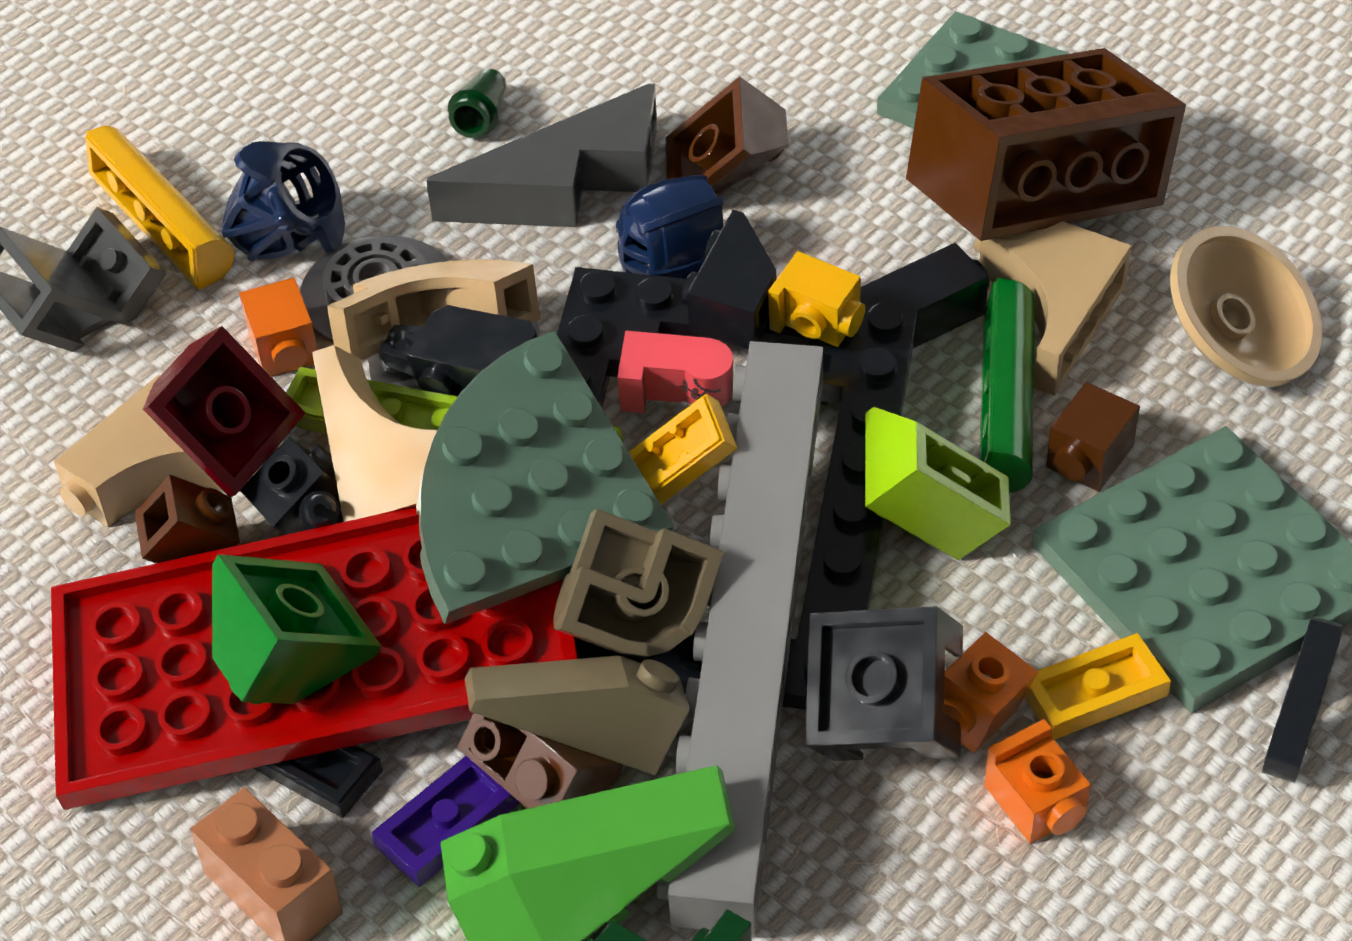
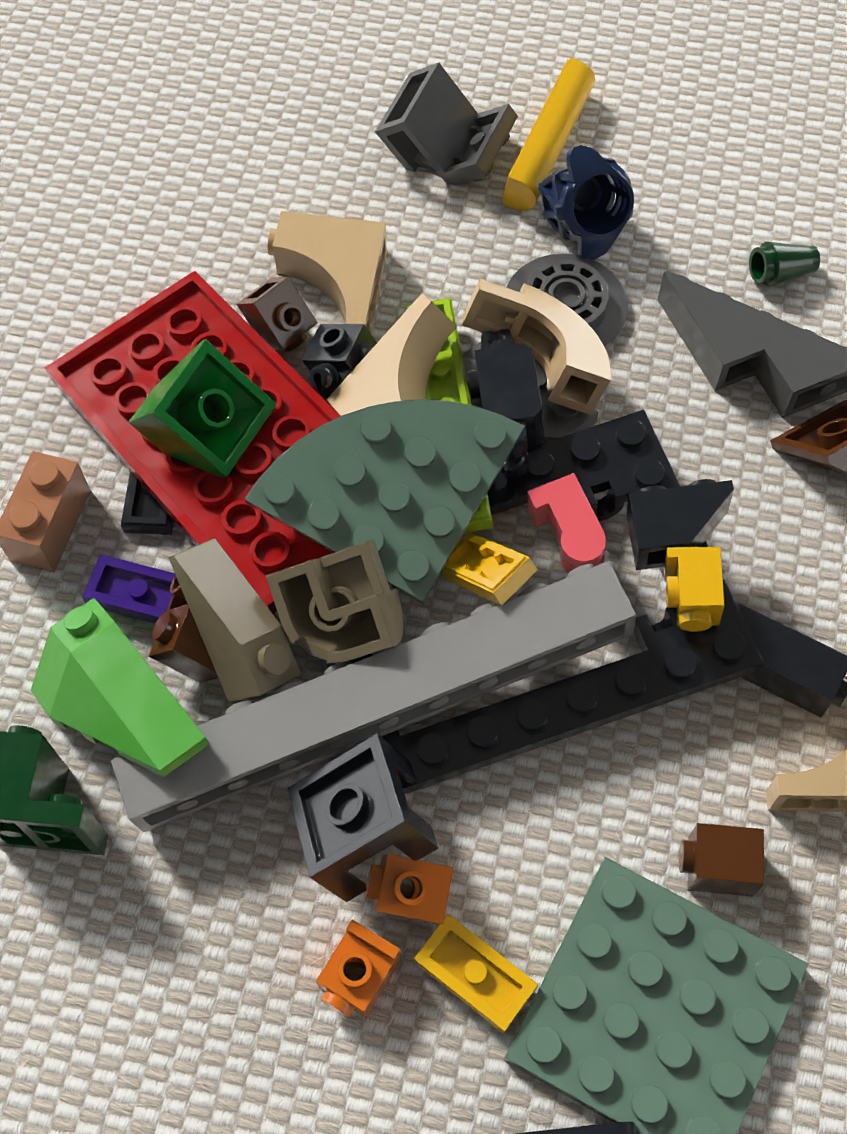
camera: 60 degrees right, 15 degrees up
(222, 409) = (352, 273): dark red slope -> none
(279, 326) = (483, 257): orange brick -> none
(672, 222) = (730, 447): dark blue piece -> none
(932, 485) = (588, 757): lime slope -> none
(1008, 382) = (741, 770): green brick -> none

